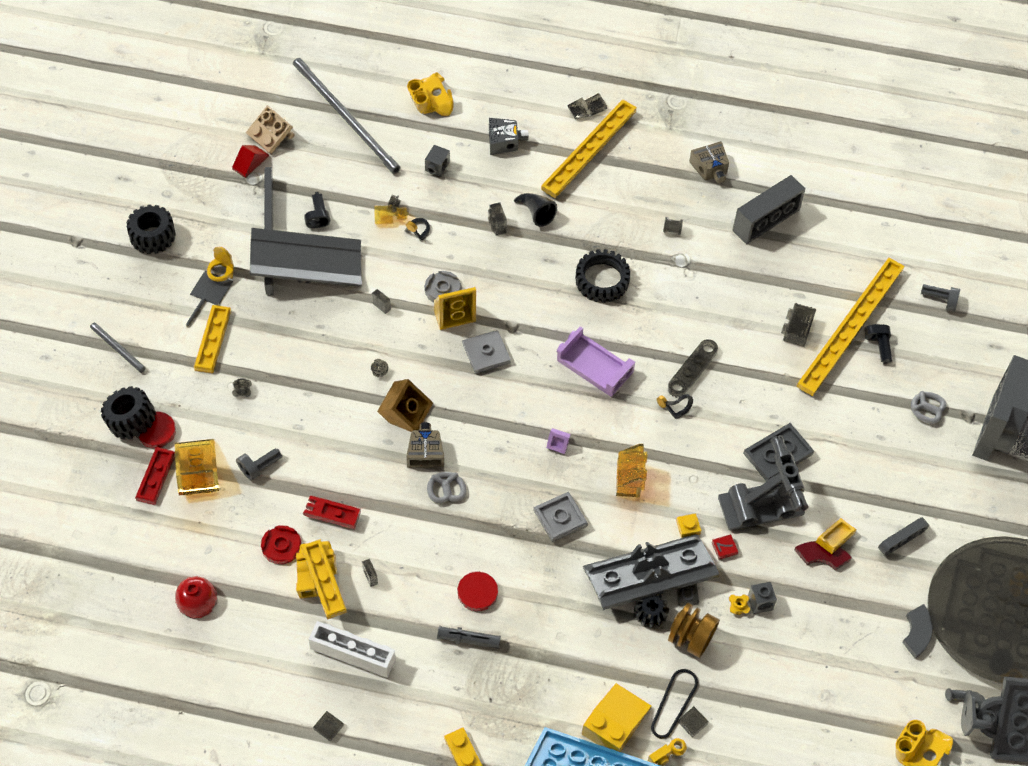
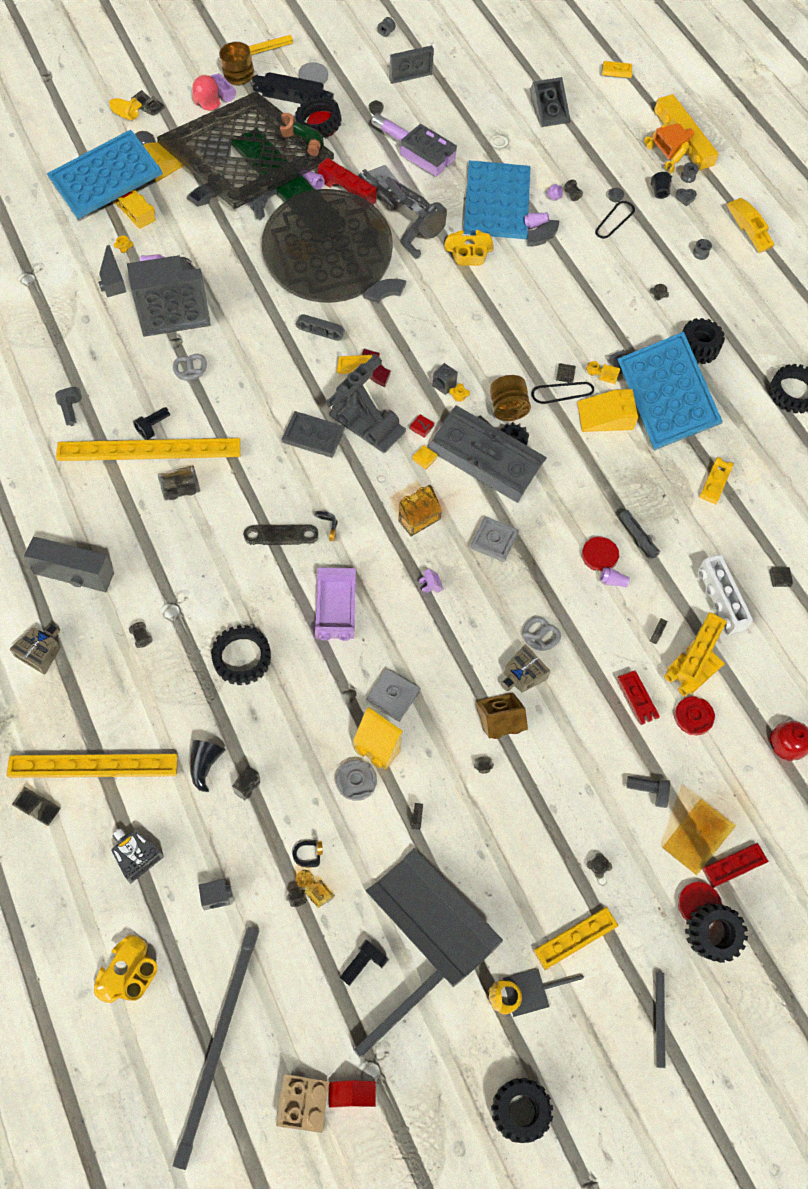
camera: 130 degrees left, 5 degrees up
(446, 579) = (614, 578): none -> lavender cone

